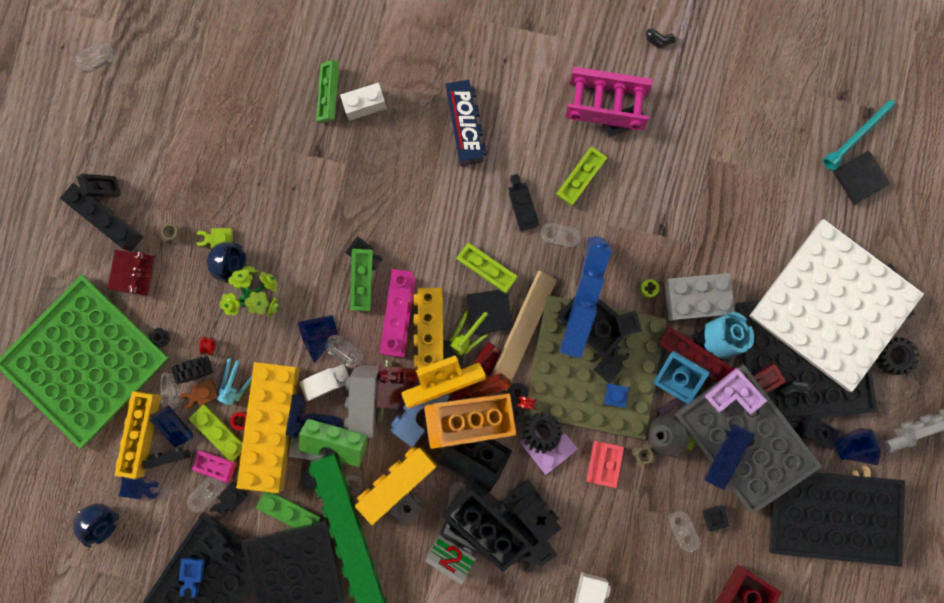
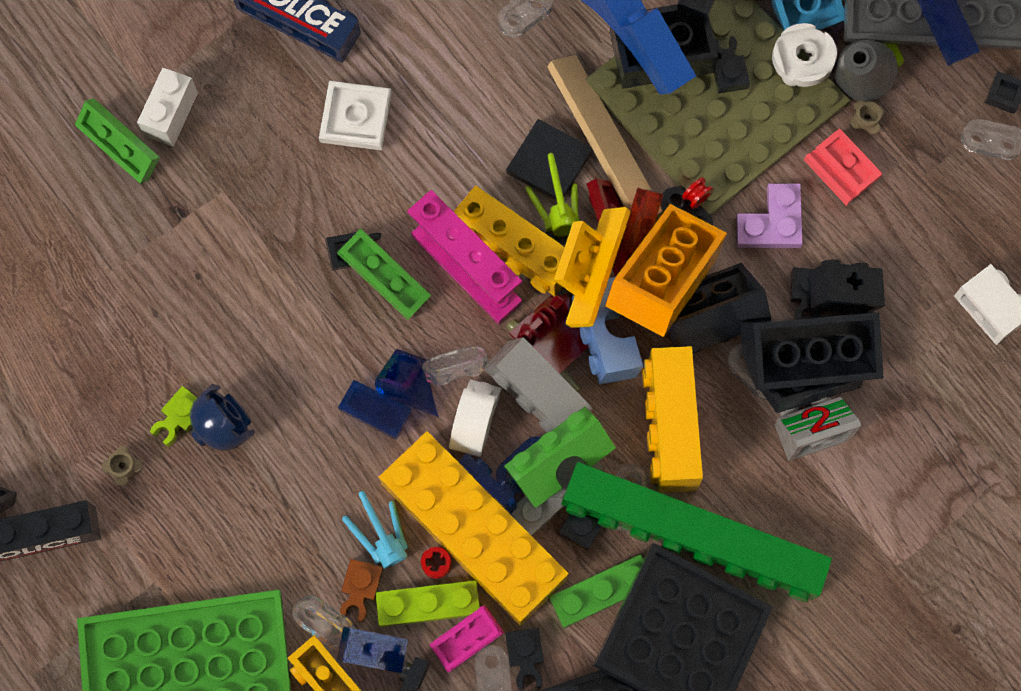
camera: 50 degrees left, 10 degrees down
(131, 272) = (128, 556): dark red hinge -> none
(165, 337) = (243, 573): black plate -> none
(192, 370) = (322, 566): black tyre -> none
(207, 346) = (306, 528): red bush -> none
(253, 299) = (285, 435): lime plant -> none
(290, 331) = (375, 409): none -> clear blue plate
(407, 508) = (715, 436): dark grey brick -> none
(435, 196) = (355, 115): none -> white plate
(486, 268) = (494, 121): lime plate -> none
(522, 204) = (450, 26): black hinge -> none
(538, 554) = (895, 324): black plate -> none
(550, 425) = (751, 217): black tyre -> none
(616, 395) = (770, 89): blue plate -> none
(660, 399) = (813, 41): none -> white plate

